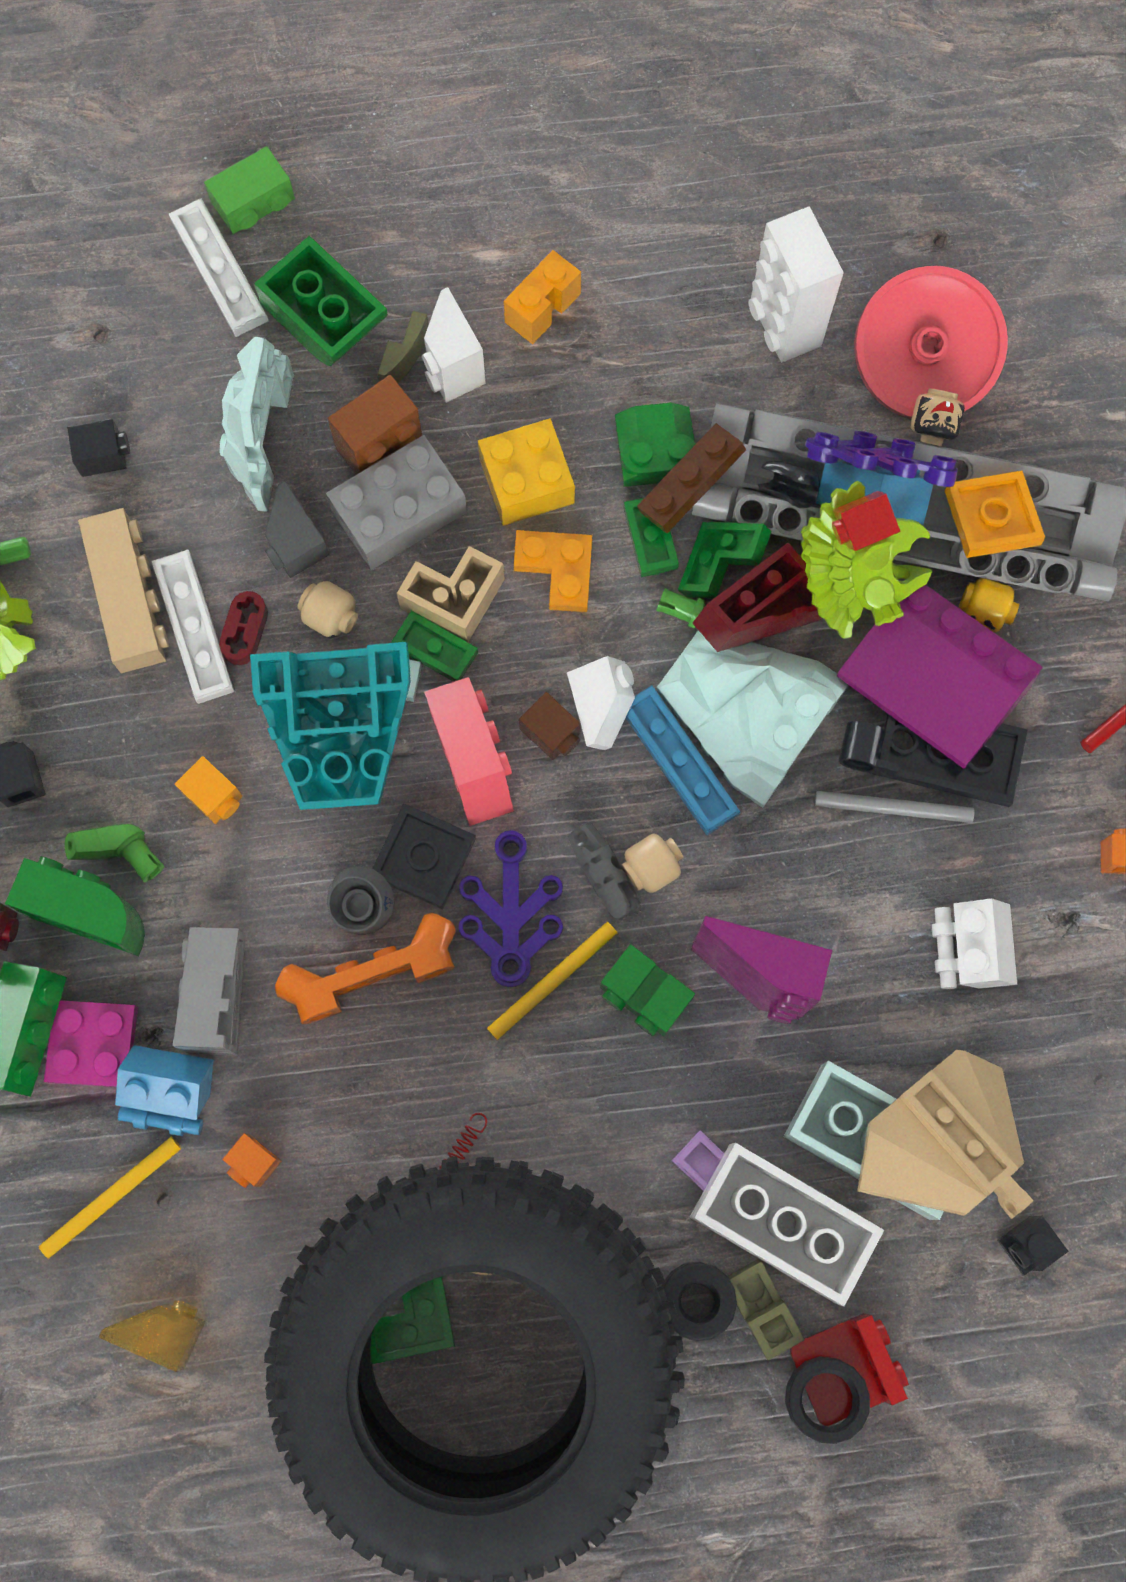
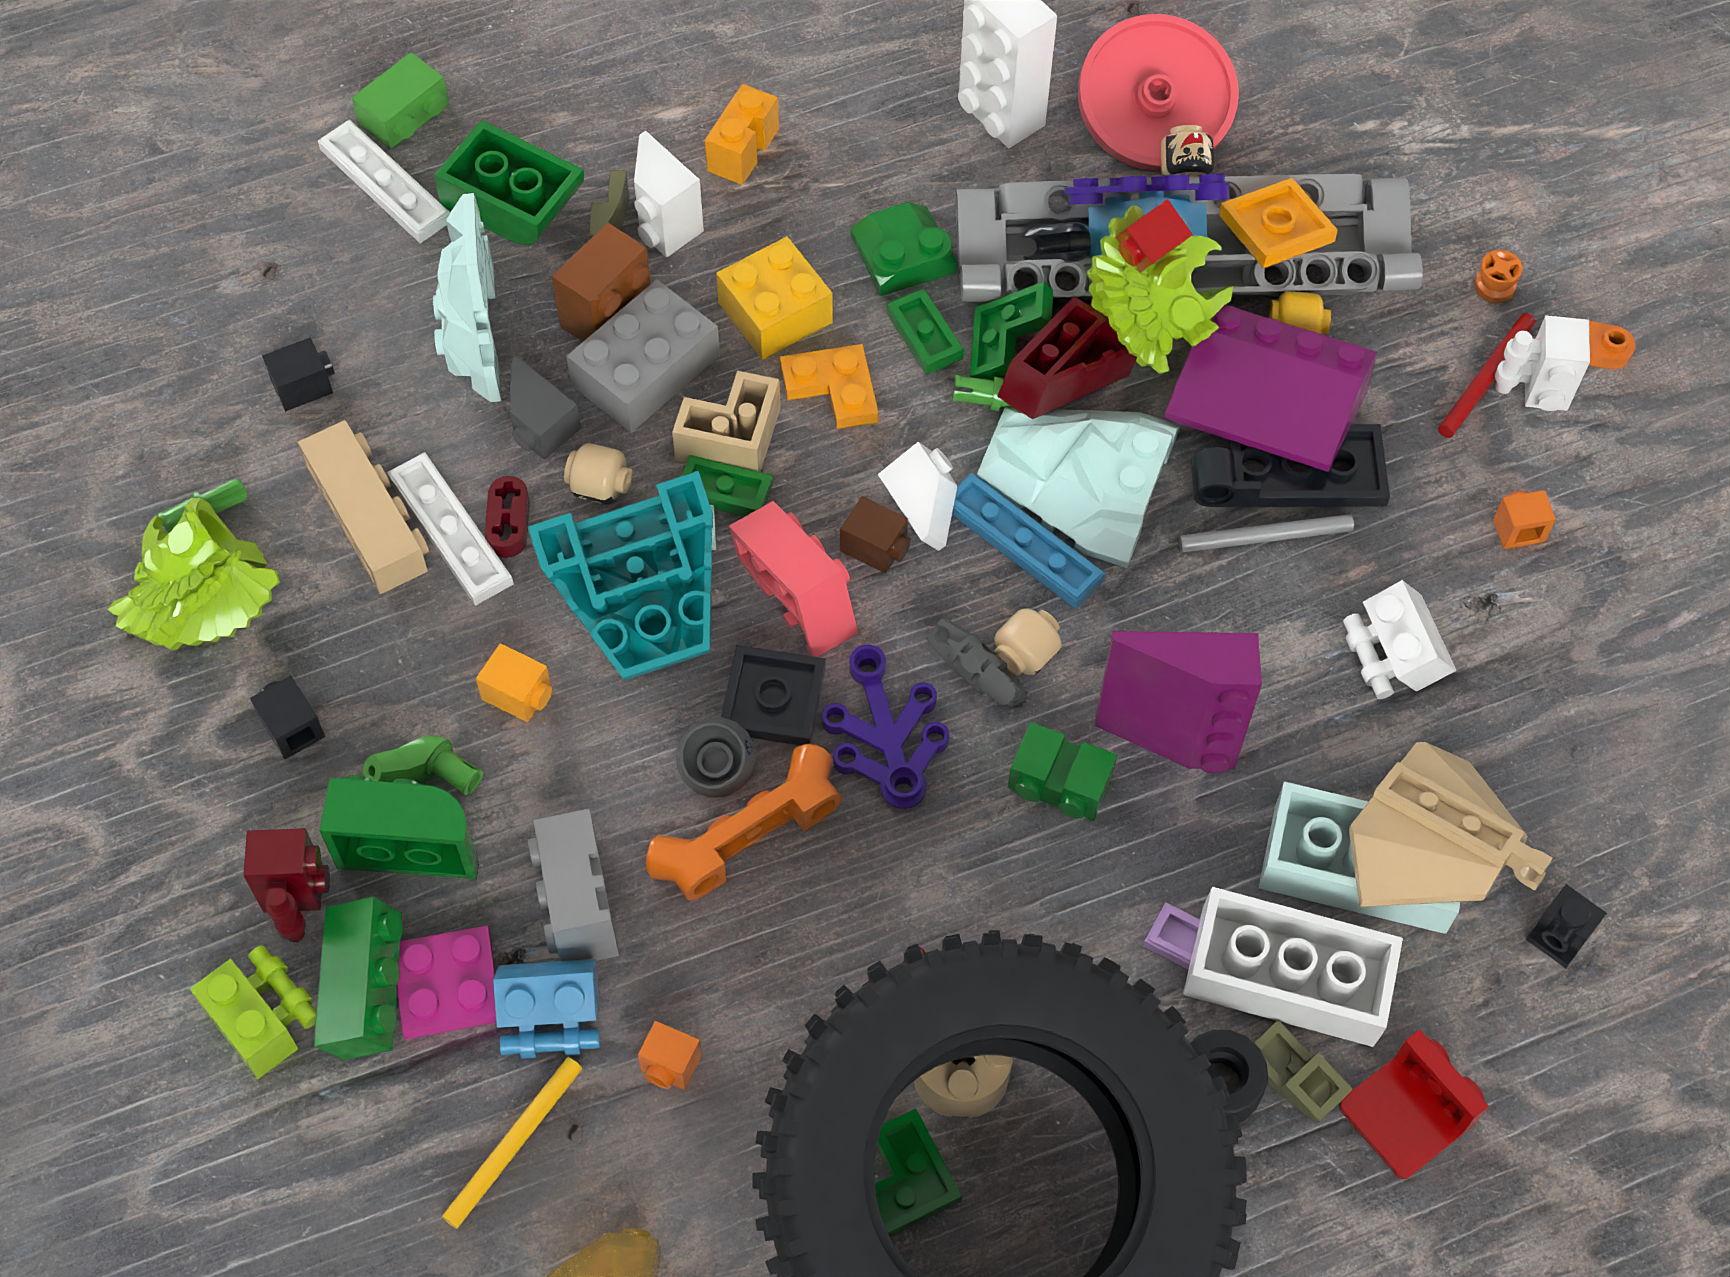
camera: 15 degrees left, 15 degrees down
(552, 980) = (952, 791): yellow bar -> none
(691, 478) = (953, 261): reddish brown plate -> none
(860, 1401) = (1420, 1109): black tyre -> none

